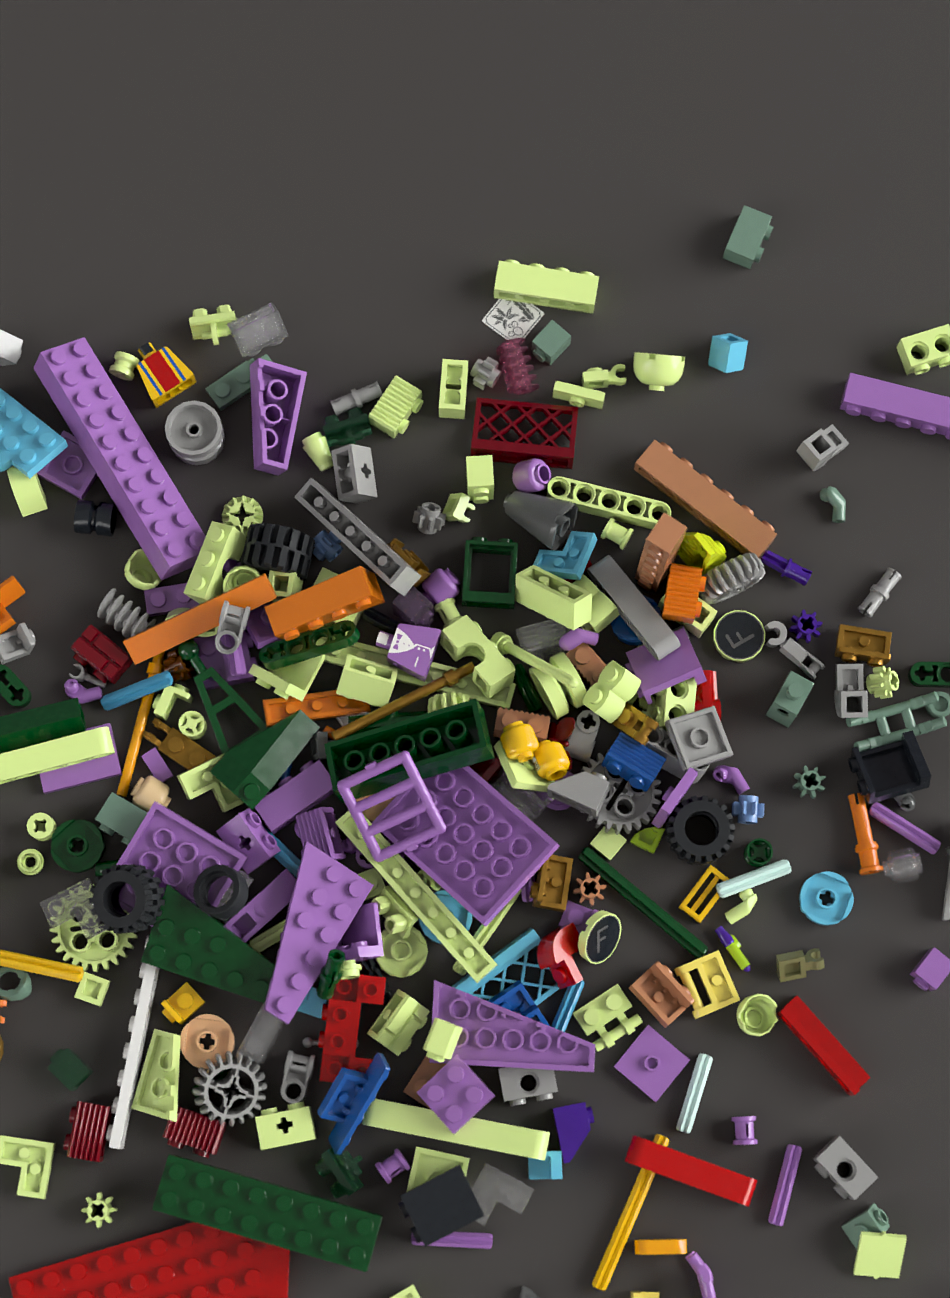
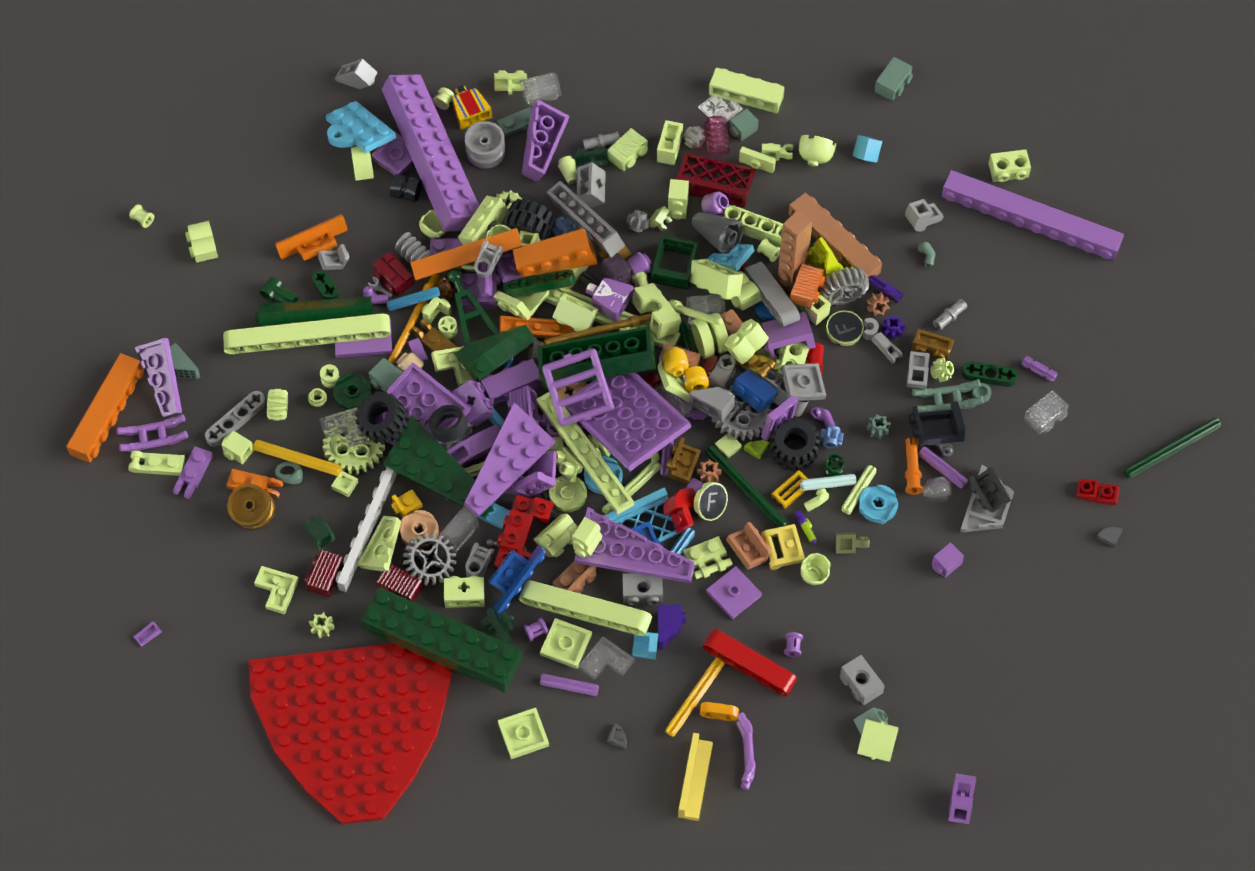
camera: 10 degrees right, 15 degrees down
(330, 974) = (515, 489): dark green pin -> none
(350, 969) = (527, 491): yellowish green plate -> none
(440, 1206) = (565, 653): black panel -> none
(455, 1094) = (589, 580): medium lavender plate -> none
(576, 637) = (728, 304): medium lavender arm -> none
(694, 1093) = (761, 616): light aqua axle -> none
(780, 594) = (878, 299): none -> nougat gear
(785, 1185) = (816, 686): medium lavender axle -> none
(789, 698) = (875, 365): sand green torso -> none
(796, 880) = (860, 486): none -> yellowish green axle
(823, 1045) = (859, 599): red fence -> none

